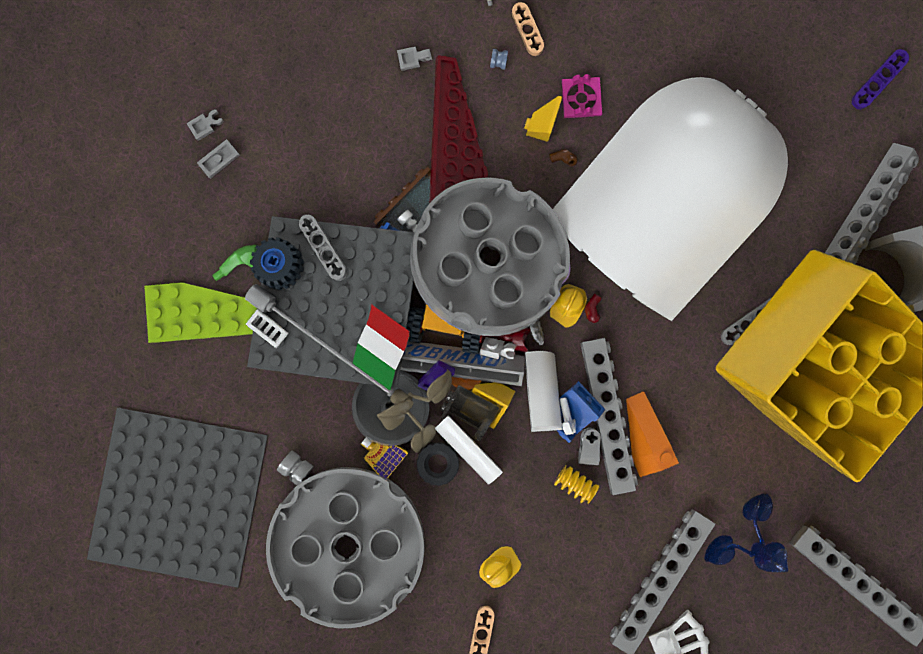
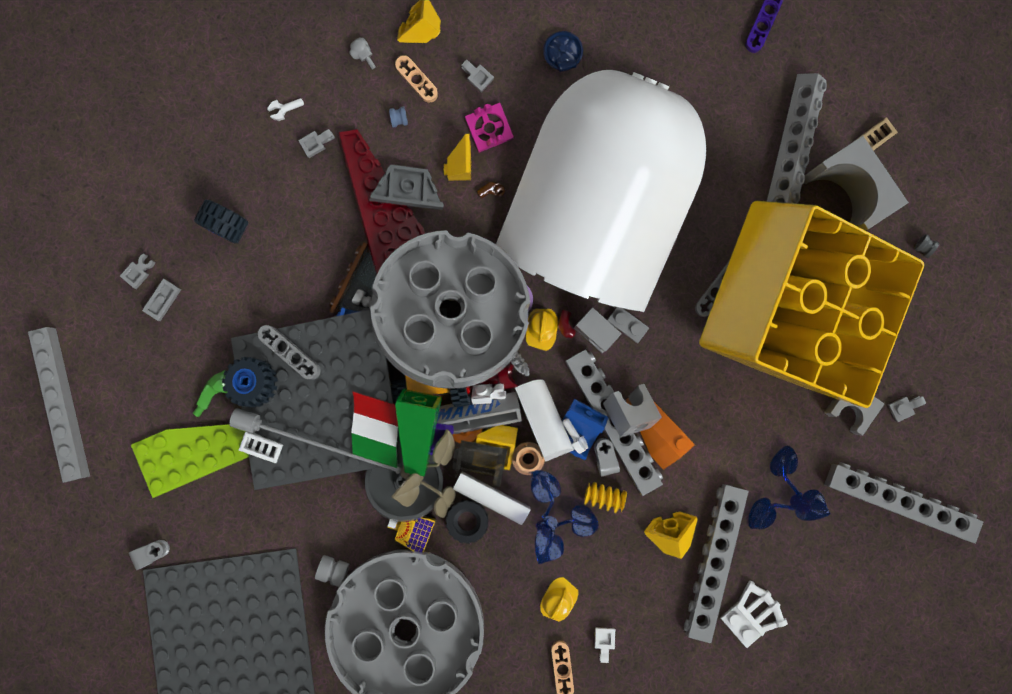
camera: 20 degrees left, 0 degrees up
(90, 225) = (59, 404): none -> light grey brick
(126, 394) = (147, 554): none -> light grey piece
(299, 102) = (221, 221): none -> black wheel
(393, 15) = (284, 108): none -> white bar
(422, 356) = (417, 423): none -> green slope
(485, 129) = (407, 187): none -> dark grey wing
(509, 511) = (548, 544): none -> clear blue plant
(522, 431) = (520, 451): none -> light nougat piece
(531, 620) = (604, 641): none -> white plate
(588, 46) = (479, 76): none -> light grey plate
(621, 324) = (597, 330): none -> light grey piece
(628, 417) = (635, 417): none -> light grey piece
(629, 541) = (674, 534): none -> yellow slope
(652, 328) = (628, 324): none -> light grey plate
(676, 47) = (563, 50): none -> dark blue piece
(849, 488) = (864, 416): none -> light grey piece
(889, 495) = (904, 408): none -> light grey plate

